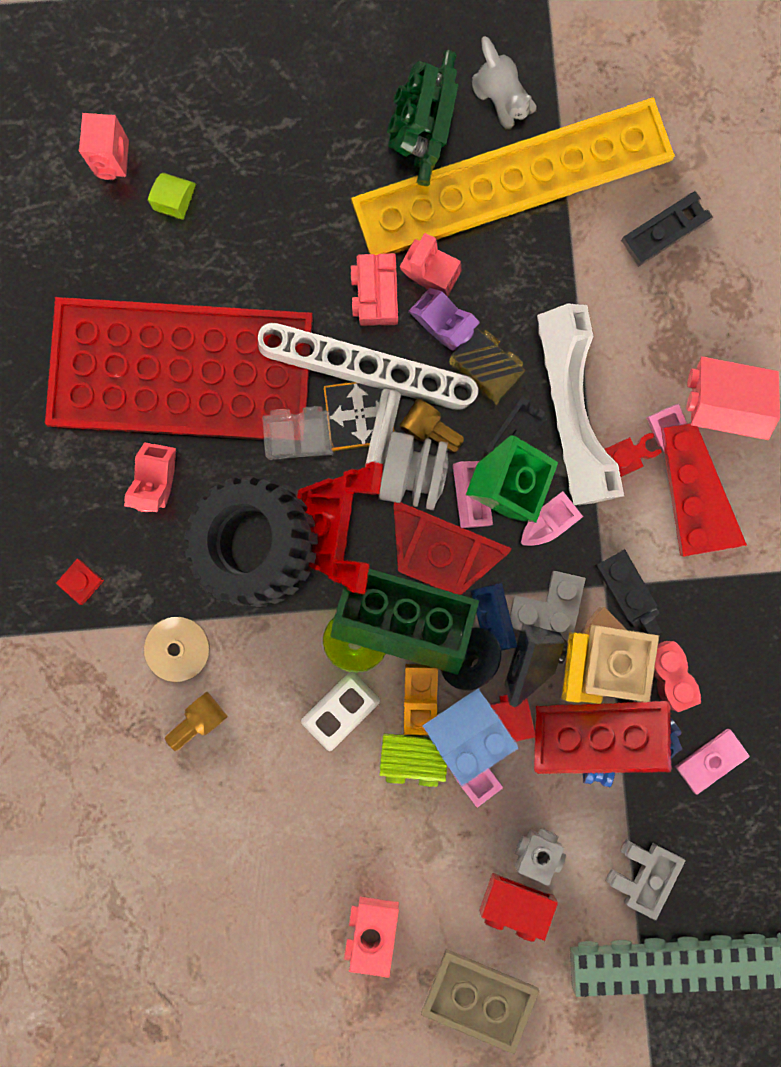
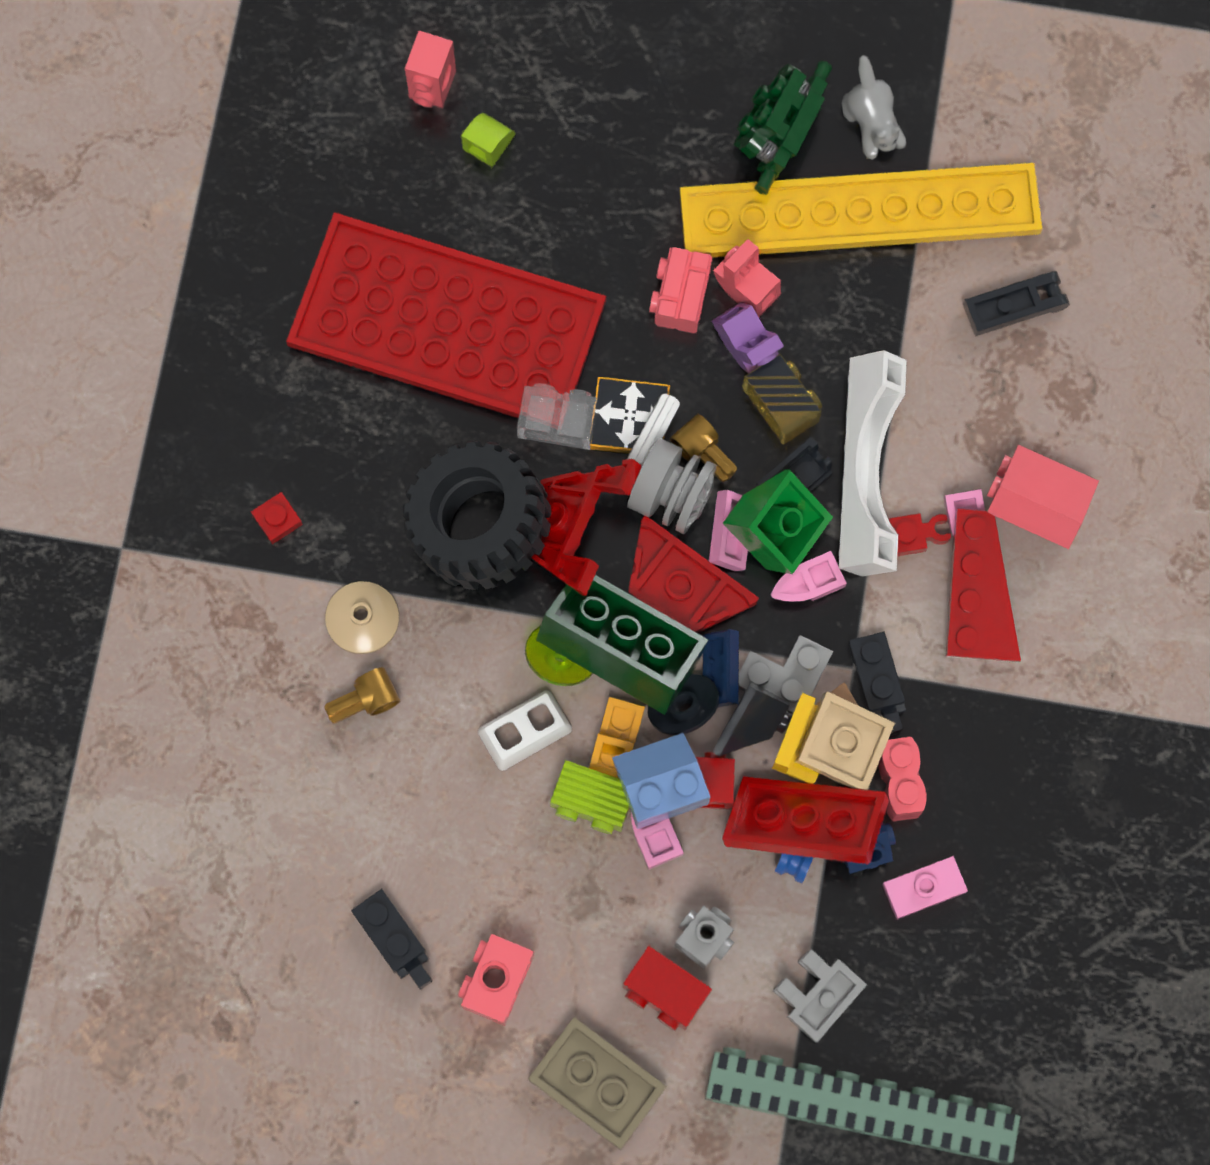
camera: 10 degrees right, 10 degrees down
(152, 478) = (387, 425): coral brick -> none
(276, 921) = (393, 937): none -> black hinge
(350, 368) = (642, 349): white beam -> none

